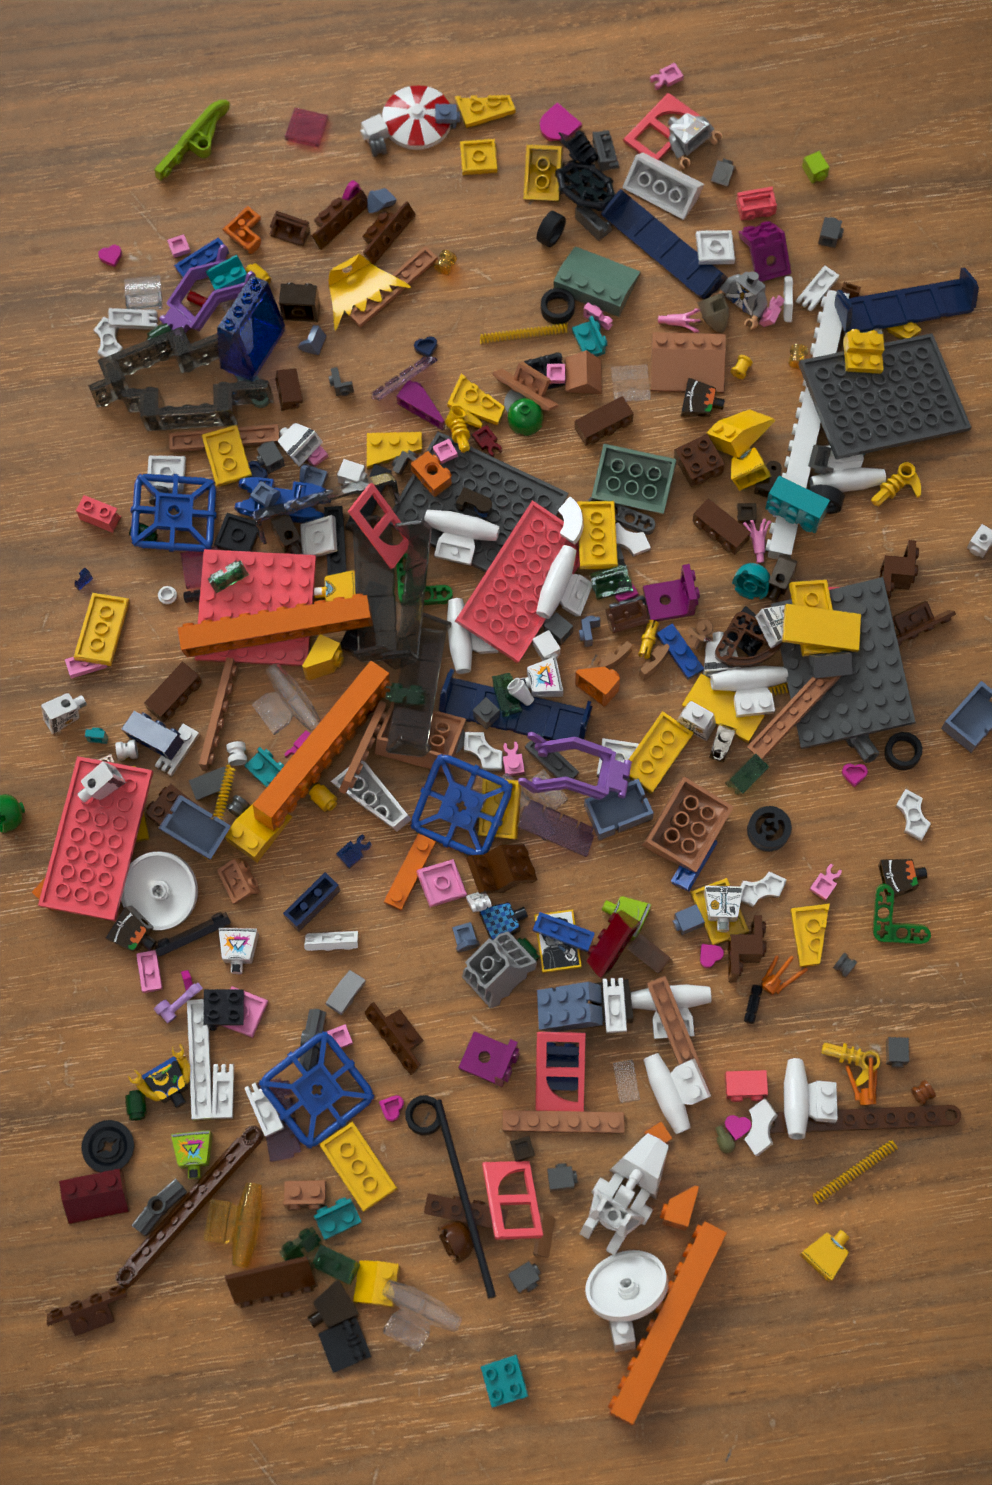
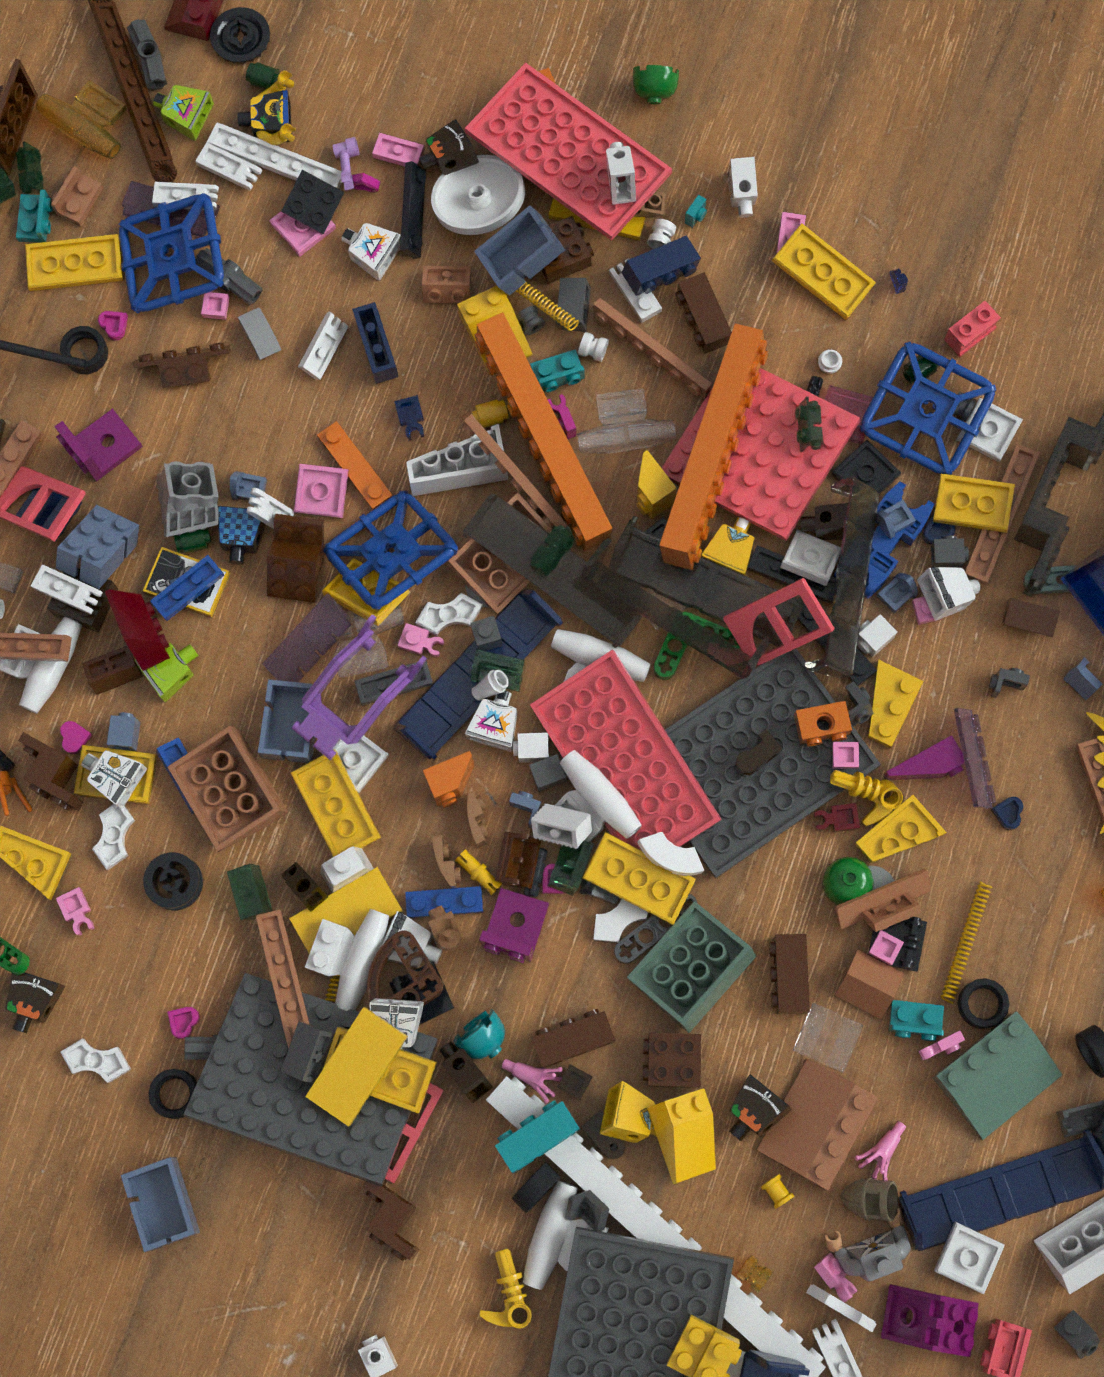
camera: 120 degrees right, 5 degrees up
(459, 534) = (724, 715): white plate -> none
(590, 596) = (561, 825): none -> white brick
(918, 619) = (319, 1211): reddish brown bracket -> none

